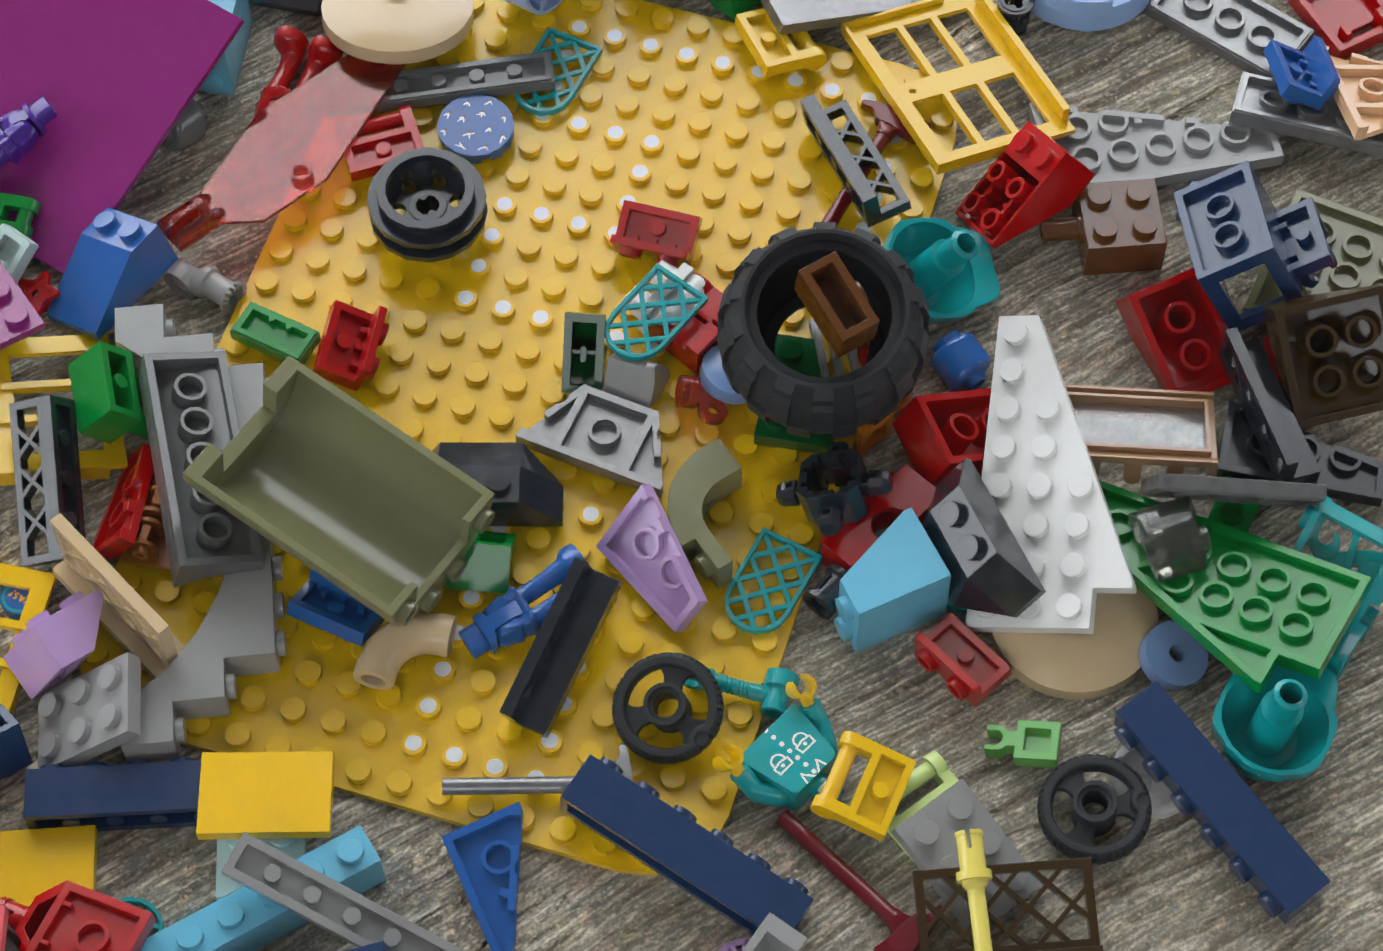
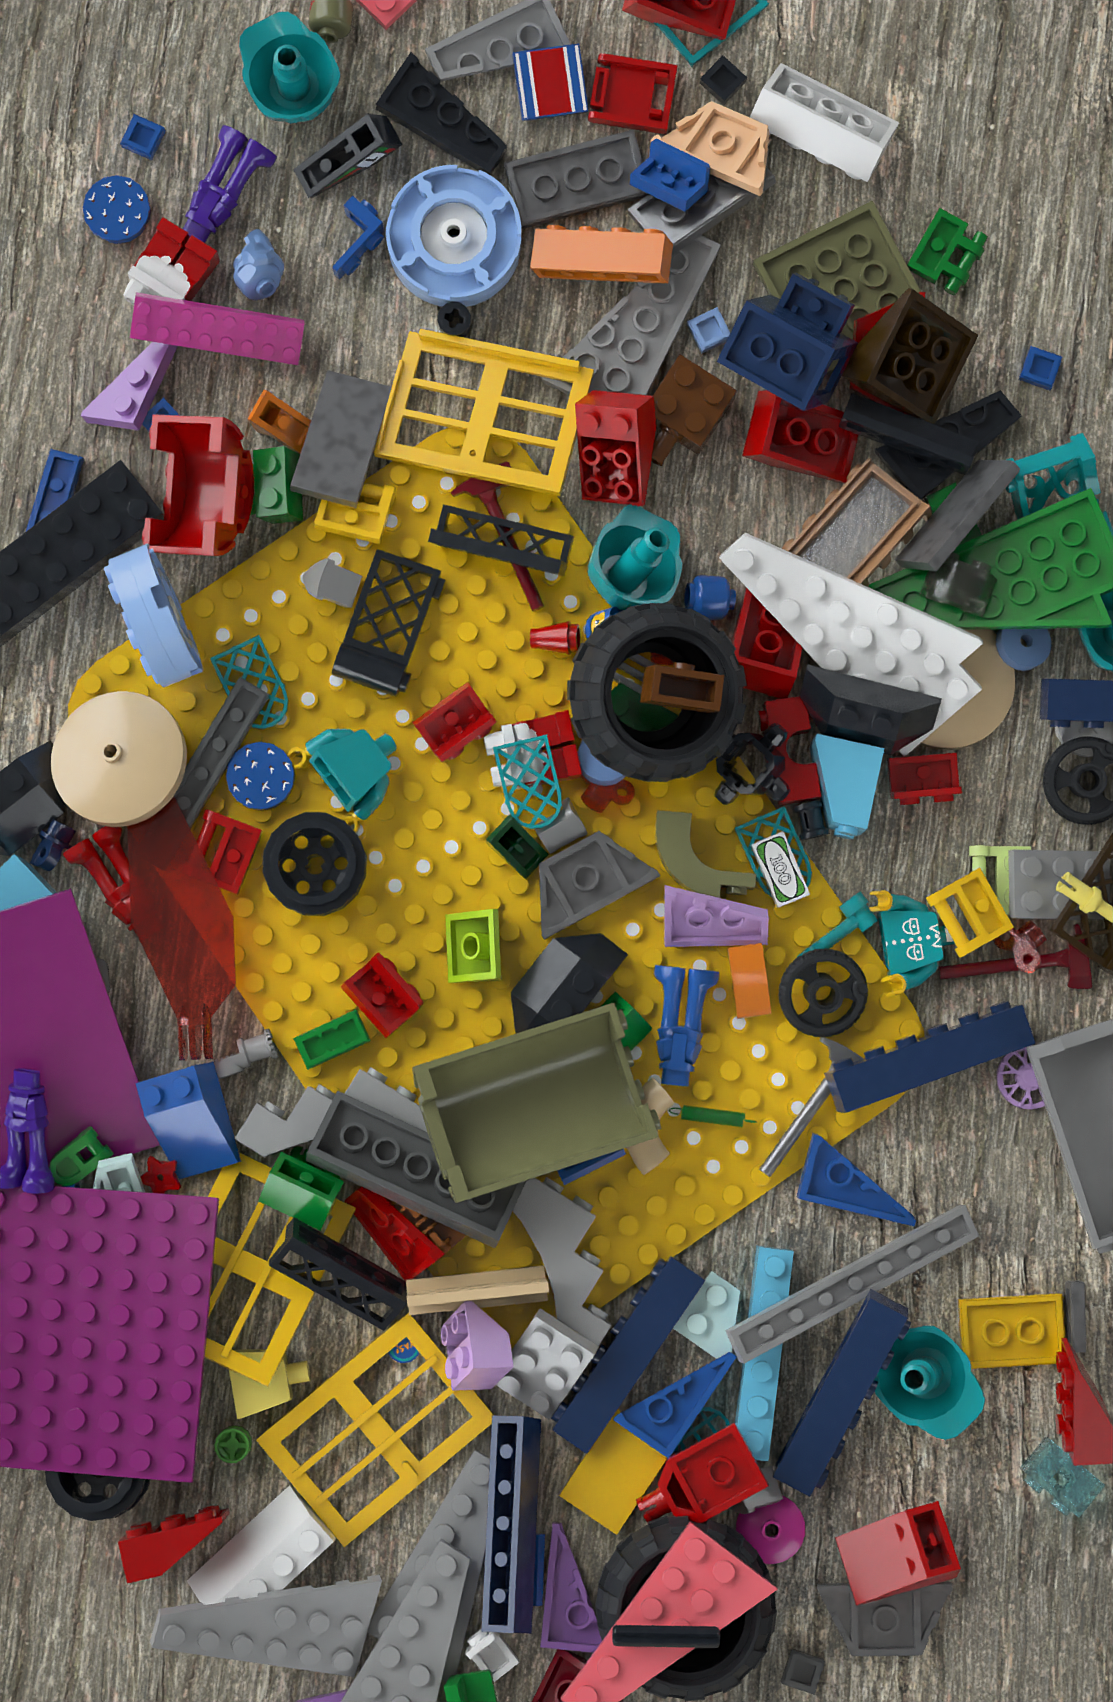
camera: 55 degrees left, 25 degrees up
(138, 871) = (671, 1411): none -> blue wing
(266, 794) = (693, 1291): yellow tile -> none
(291, 17) = (52, 844): none -> dark blue piece
(463, 703) = (712, 1116): none -> green piece
(464, 391) = (473, 946): none -> lime slope
(541, 183) = (351, 767): none -> teal torso
(560, 648) = (734, 1030): black fence -> none
(624, 638) = (749, 980): none -> orange slope
(656, 151) = (377, 666): none -> black piece
(698, 67) = (332, 583): none -> light grey tile
(756, 590) = (780, 869): none -> white tile
(876, 868) = (1024, 944): none -> clear red piece
(1031, 745) = (1013, 780): bright green plate -> none
(1180, 67) = (602, 254): none -> orange brick

